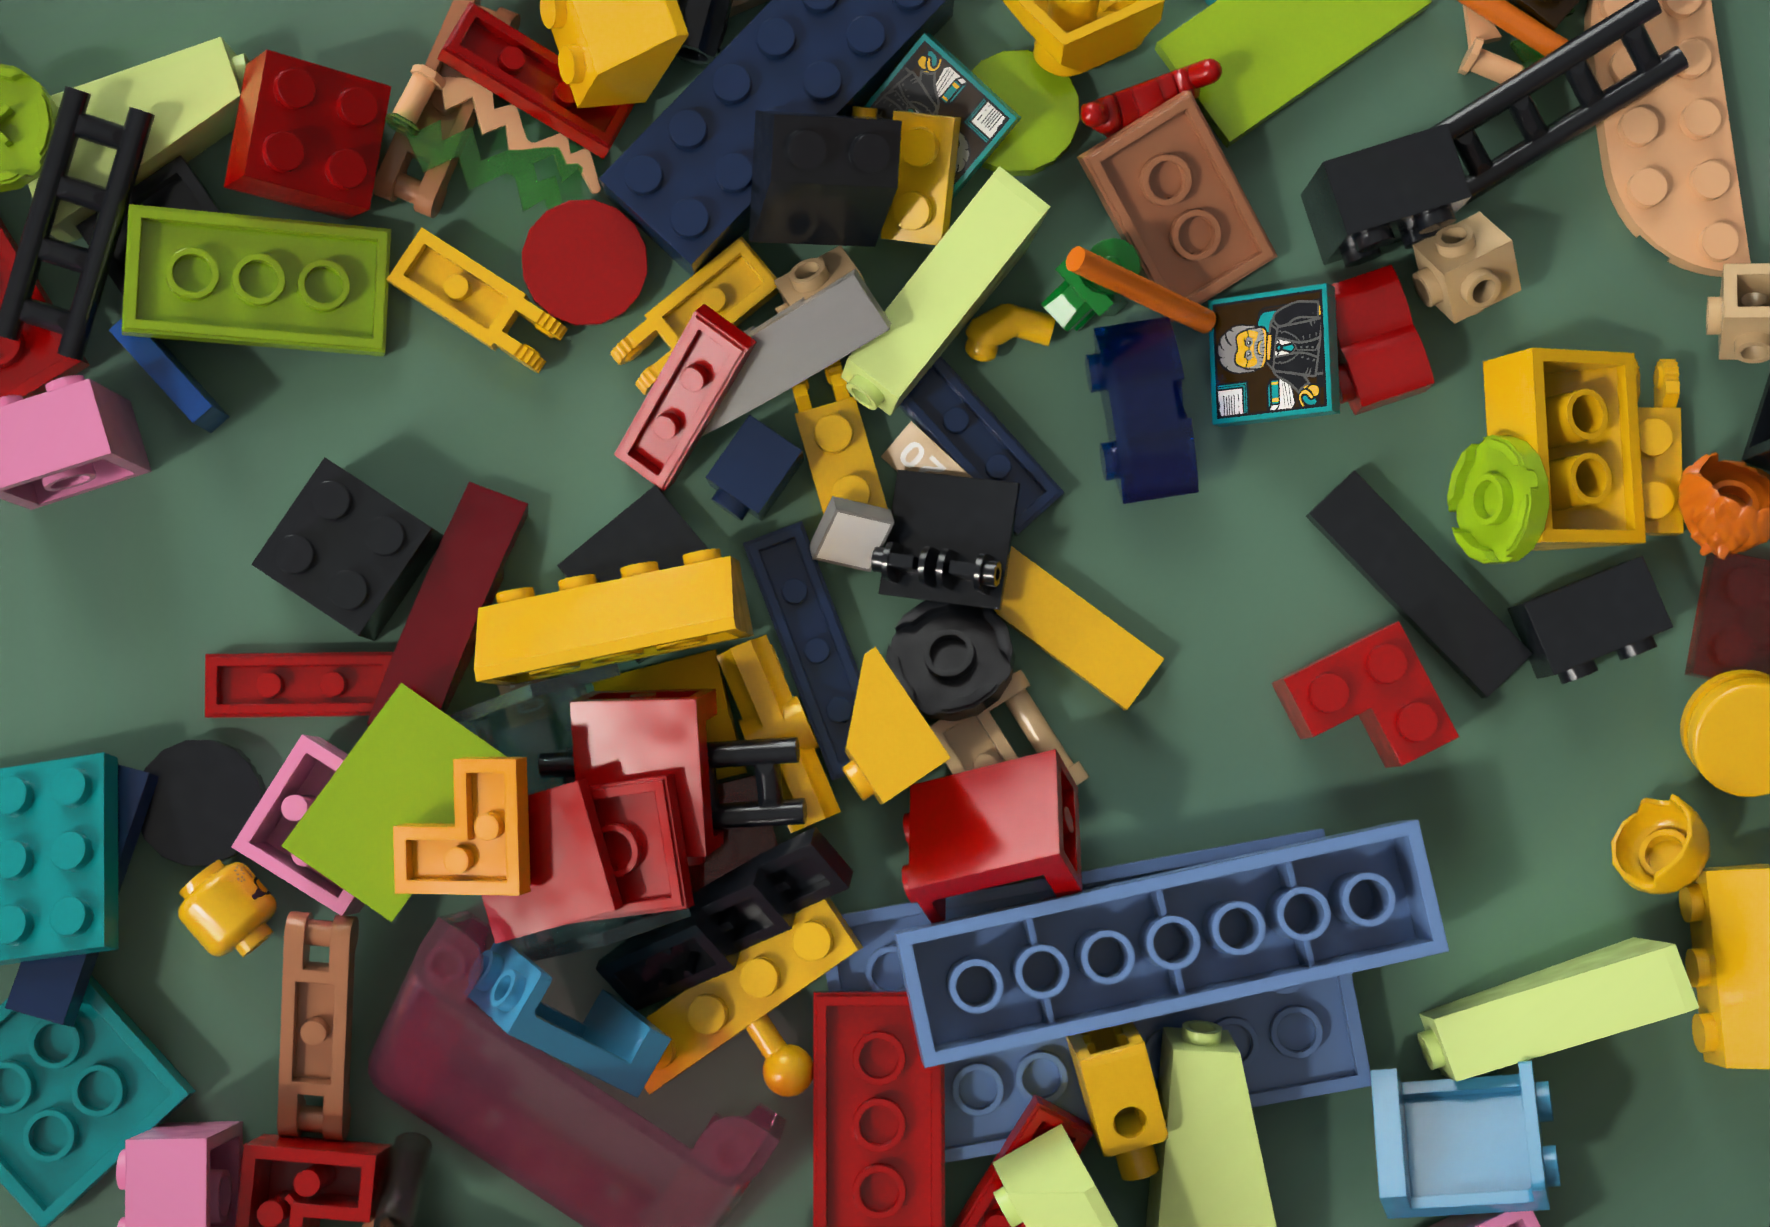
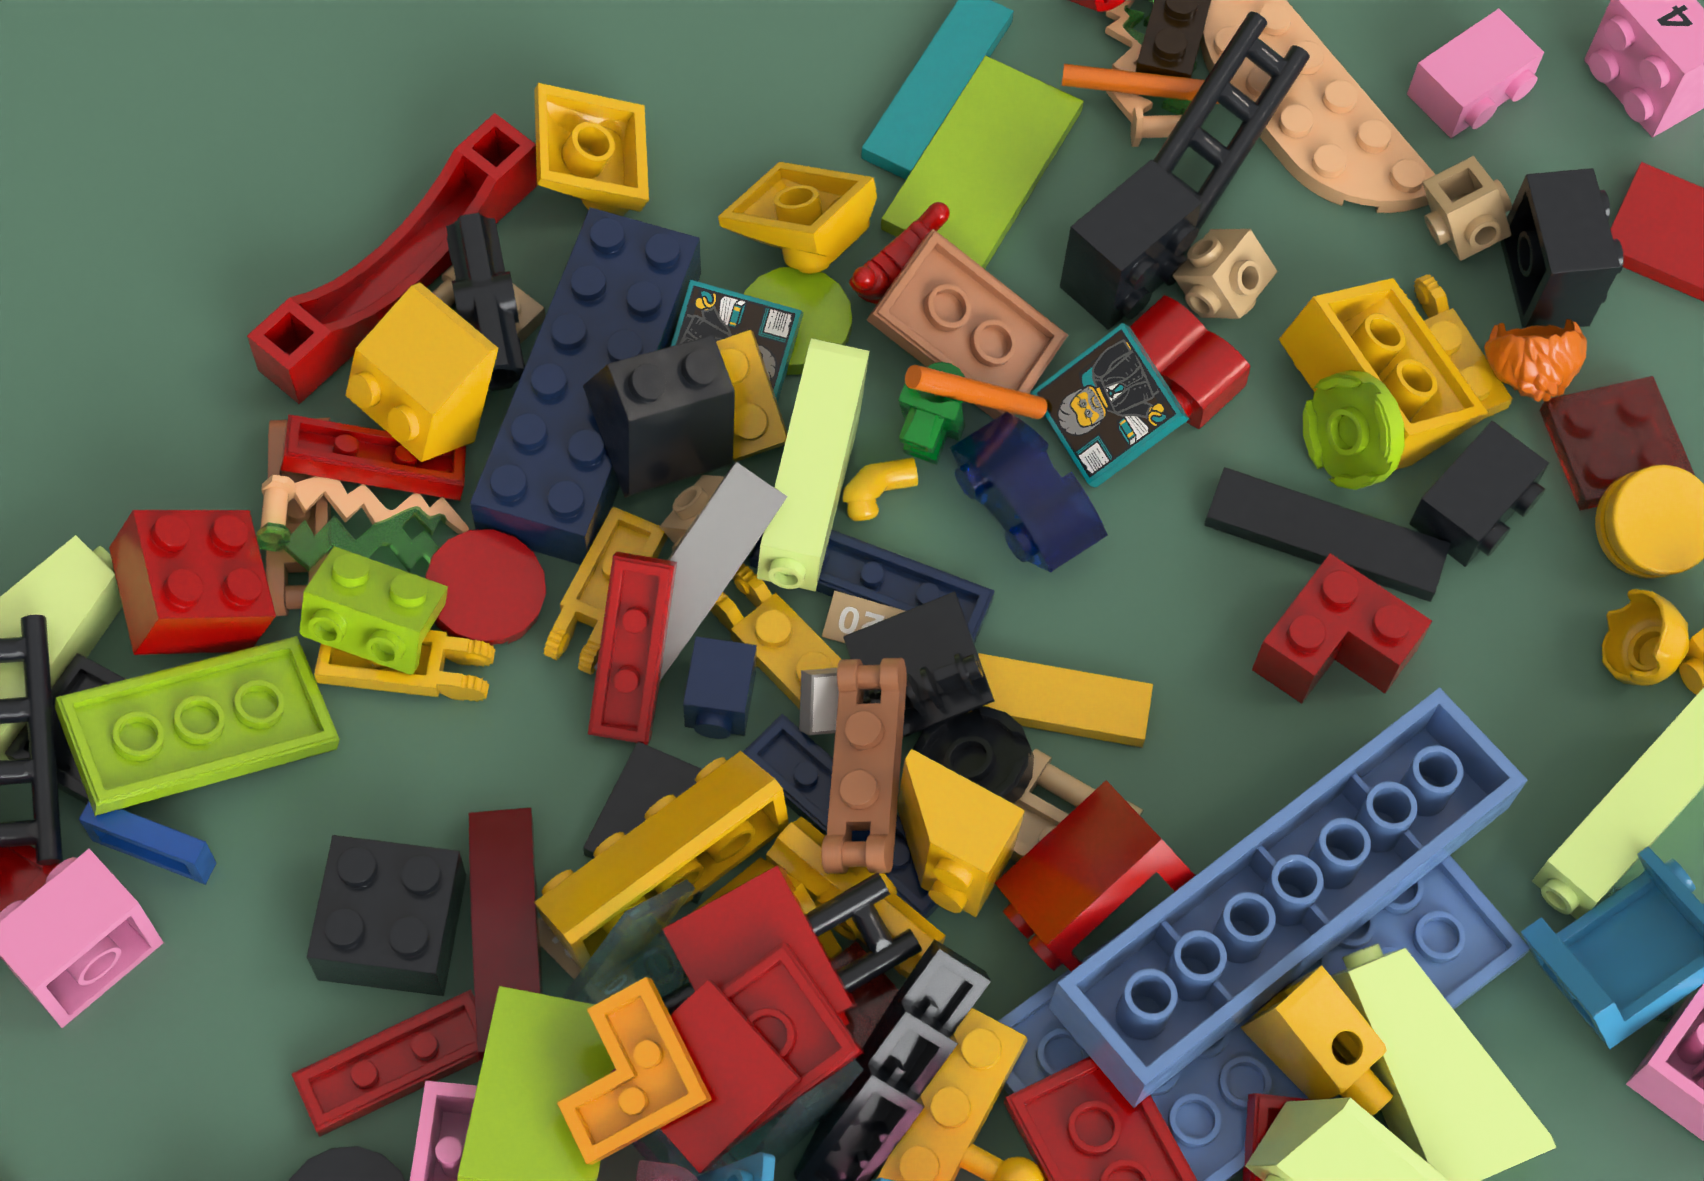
camera: 30 degrees left, 20 degrees down
(460, 243) = (370, 609): none -> lime bracket
(840, 624) = (865, 767): none -> nougat plate

